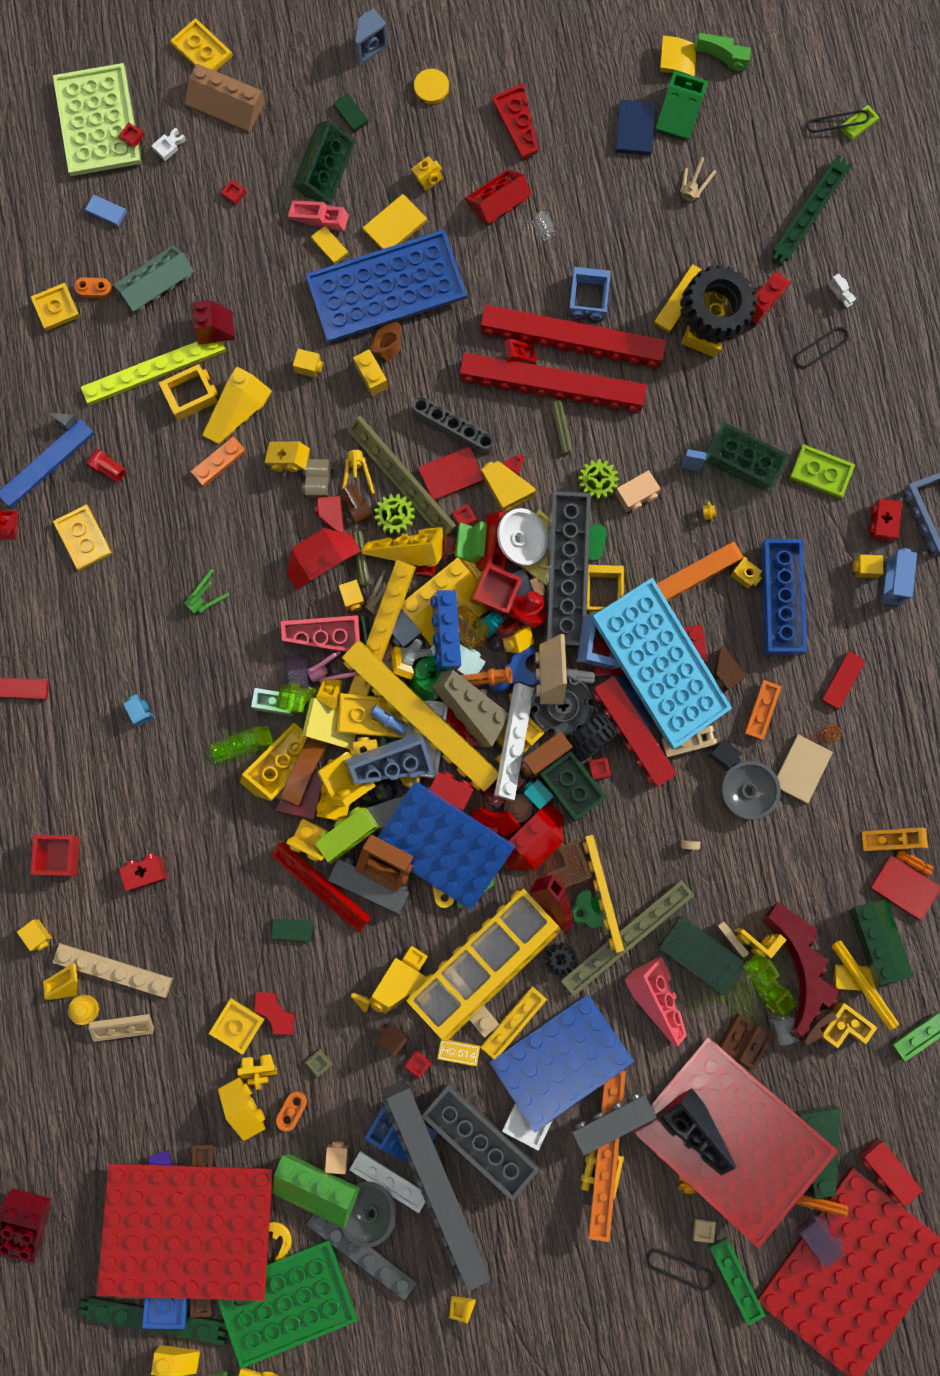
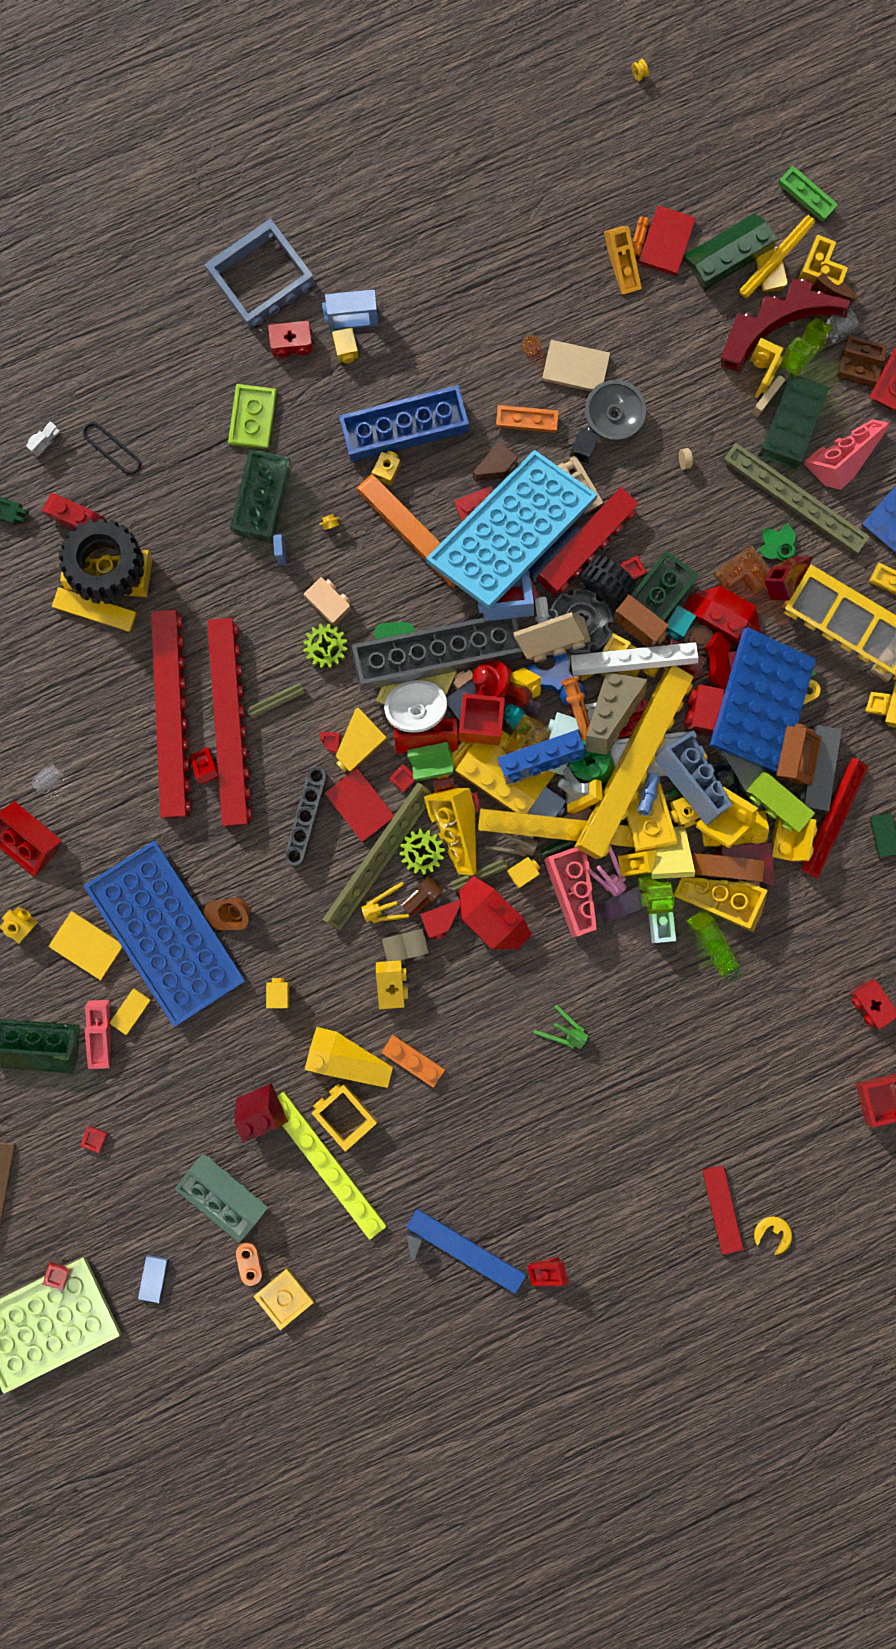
camera: 105 degrees left, 5 degrees up
(82, 537) = (537, 1183): yellow tile -> none
(102, 463) = (451, 1185): red piece -> none
(138, 710) = (708, 1062): dark azure brick -> none
(167, 146) = (57, 1232): white plate -> none
(370, 372) = (270, 922): yellow brick -> none
(567, 957) = (843, 555): black gear -> none
(589, 276) = (95, 710): medium blue window -> none
(605, 571) = (422, 598): yellow window -> none
(605, 901) = (769, 527): yellow plate -> none
(843, 680) = (472, 346): red tile -> none

